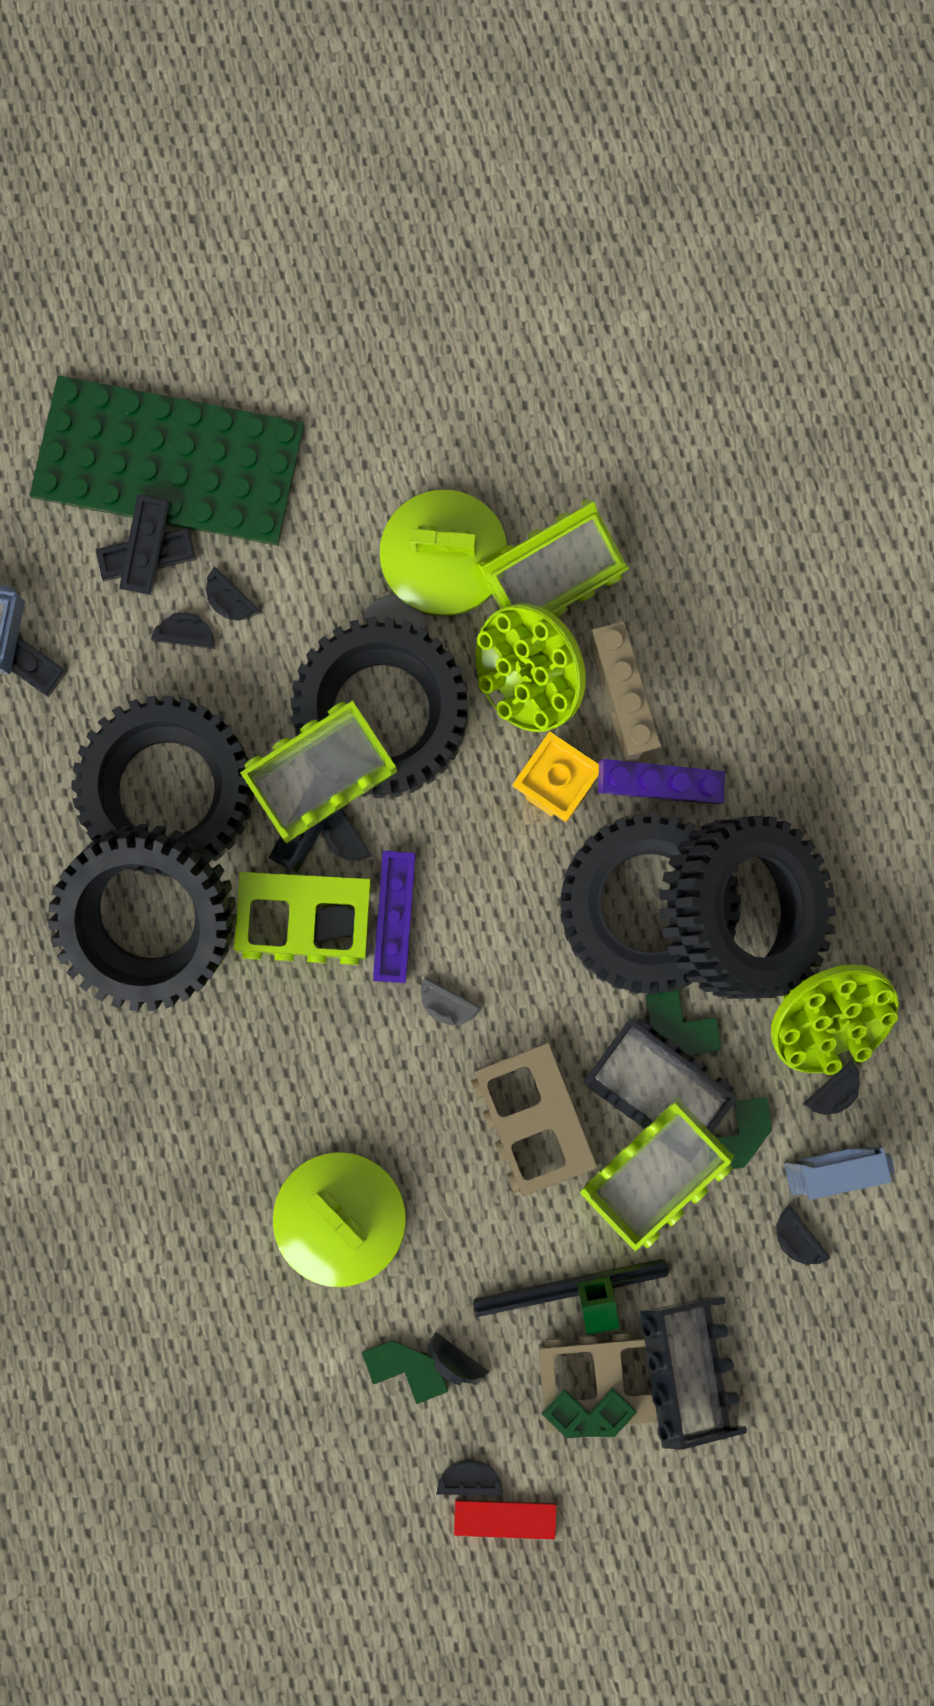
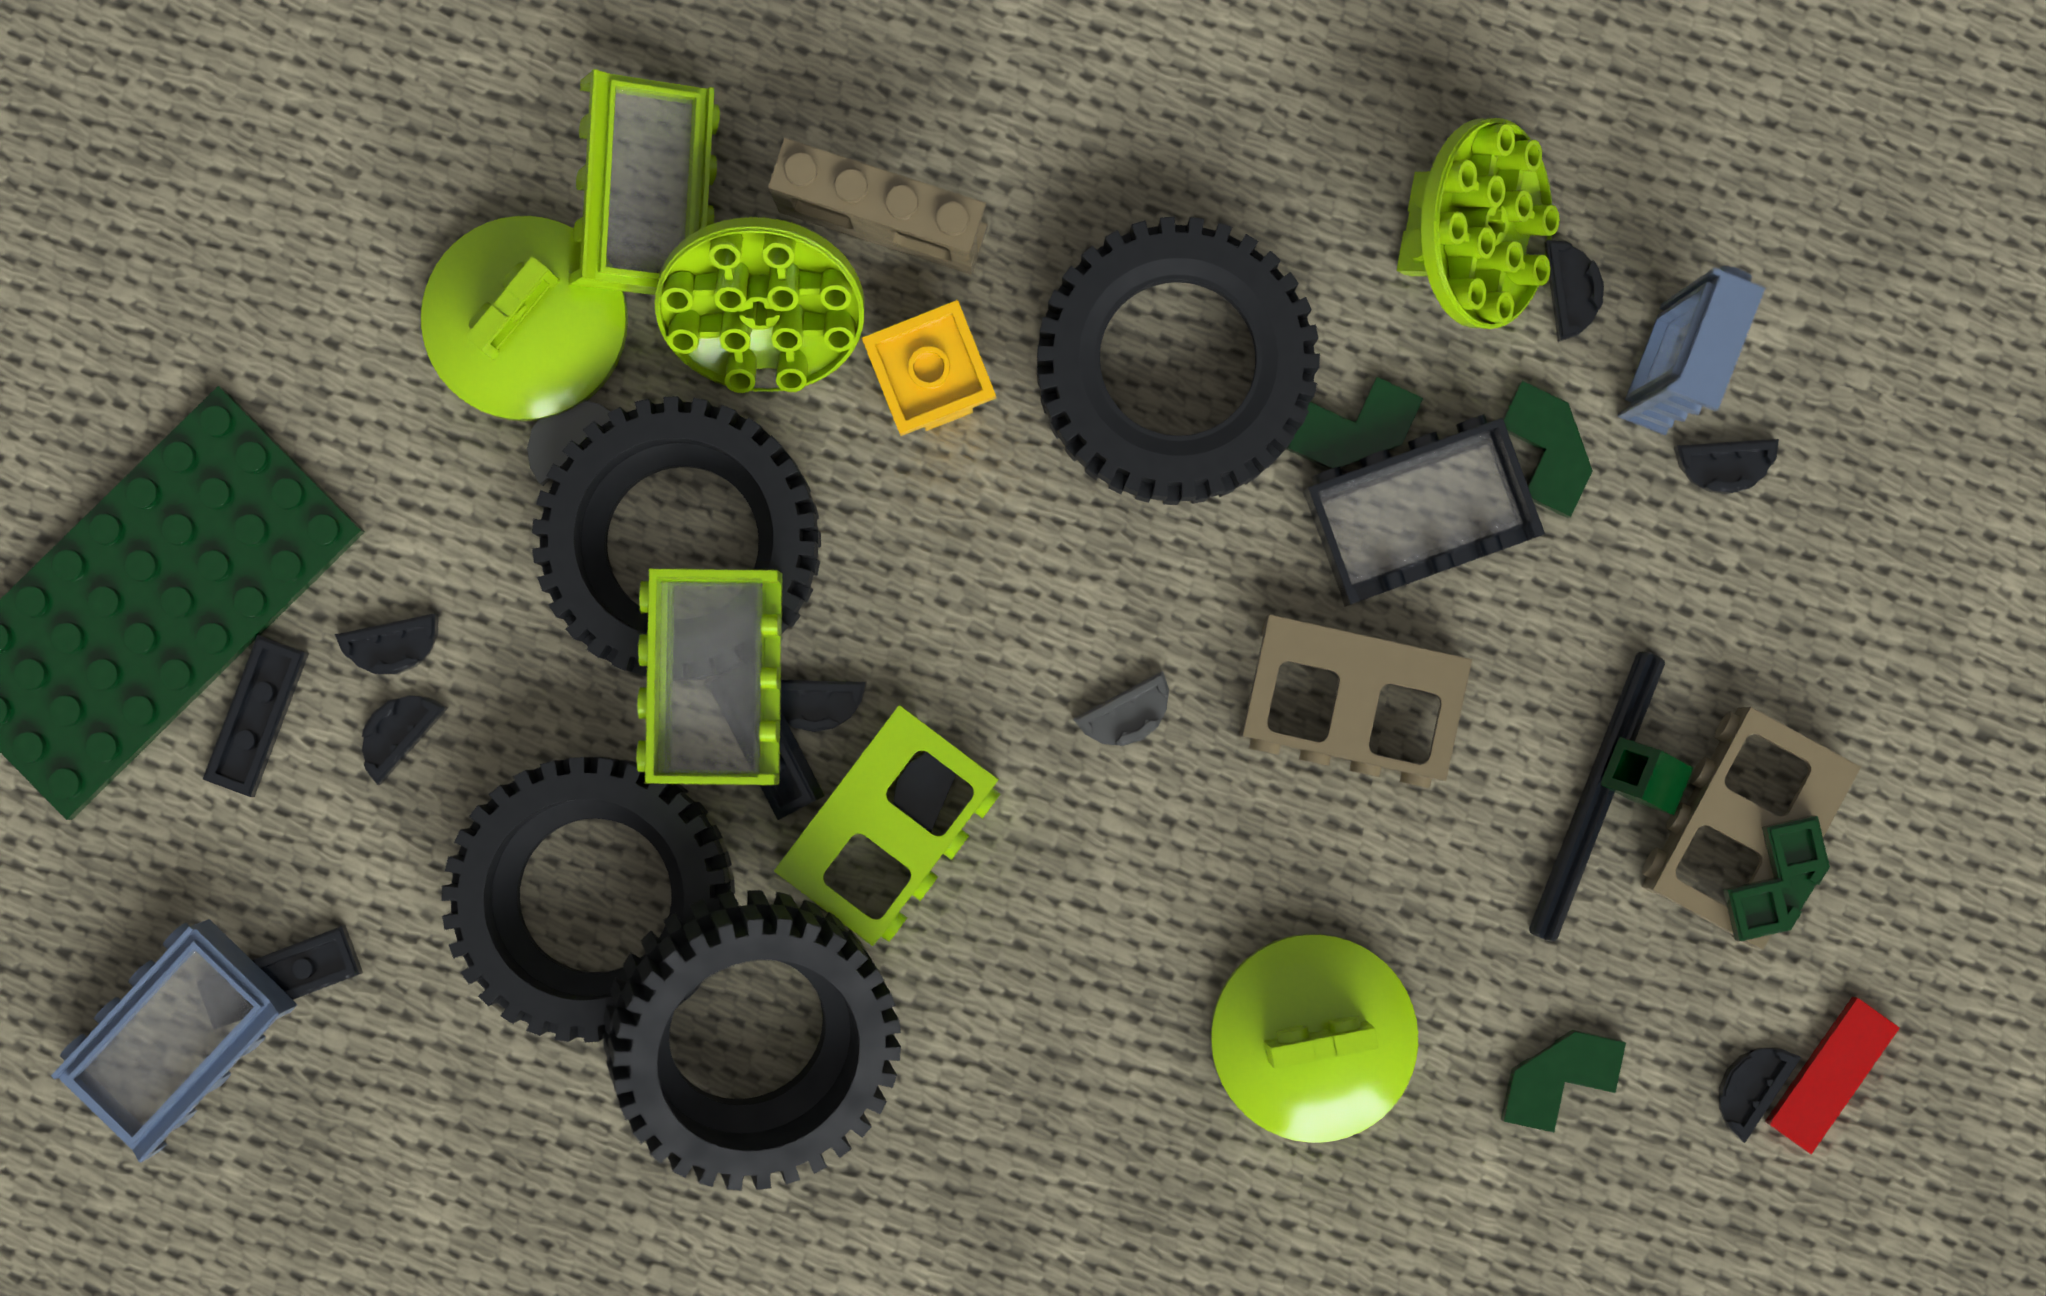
camera: 65 degrees left, 5 degrees up
(144, 544) = (241, 708): black tile -> none
(394, 917) = (968, 706): dark purple plate -> none
(454, 1363) = (1596, 1010): black tile -> none
(658, 1175) = (1534, 587): clear window -> none
(661, 781) = (1025, 238): dark purple plate -> none
(688, 1374) = (1809, 720): window -> none
(698, 913) = (1229, 292): black tyre -> none

